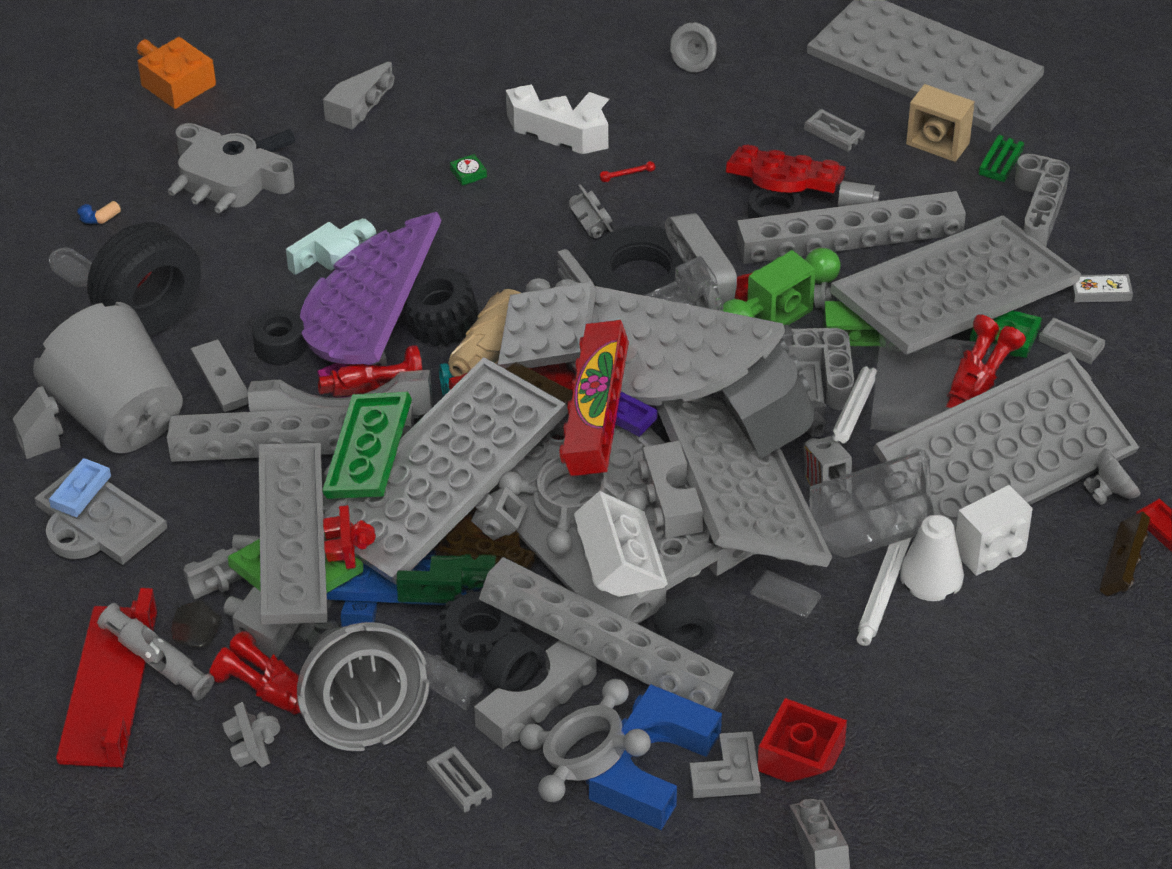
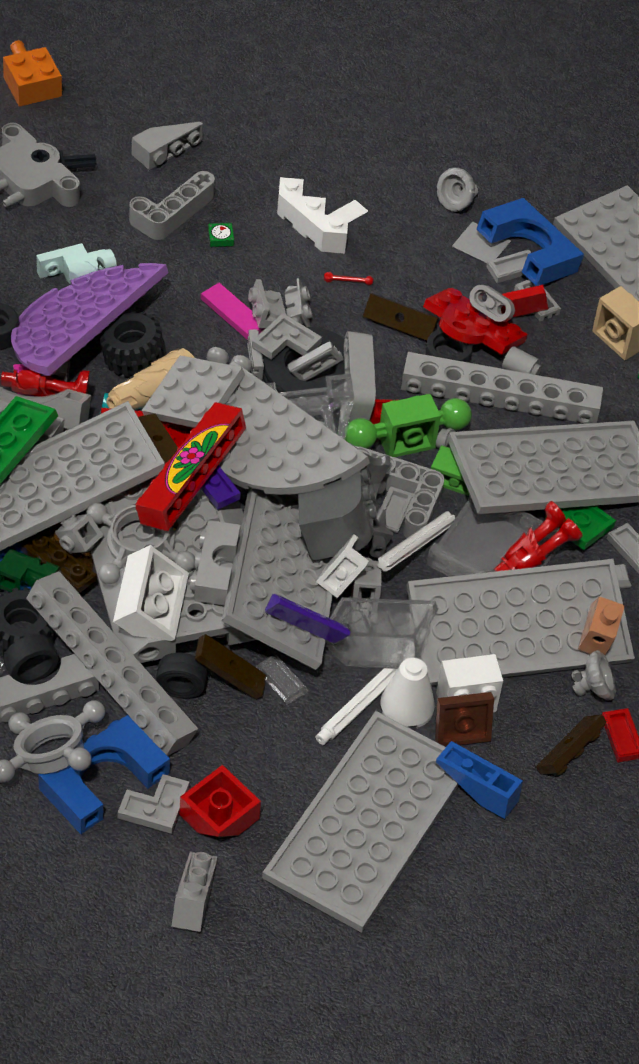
camera: 15 degrees right, 5 degrees up
(397, 173) = (163, 218): none -> light grey beam
(524, 241) = (230, 309): none -> dark pink tile
(561, 224) = (266, 304): none -> light grey bracket
(602, 240) = (284, 333): none -> light grey plate
(647, 260) = (315, 361): none -> light grey tile
(687, 190) = (387, 313): none -> dark brown tile
(733, 596) = (230, 666): none -> dark brown tile
(744, 94) = (478, 246): none -> light grey sticker
(790, 106) = (507, 266): none -> light grey tile
(798, 515) = (306, 619): none -> dark purple slope
(799, 144) = (493, 304): none -> light grey plate
(801, 452) = (342, 568): none -> white panel
(824, 135) = (527, 300): none -> red panel
(831, 78) = (520, 219): none -> blue arch
(960, 706) = (364, 823): none -> light grey plate
(1006, 564) = (464, 719): none -> copper plate
(1062, 620) = (482, 780): none -> blue slope
(1096, 421) = (601, 621): none -> nougat torso

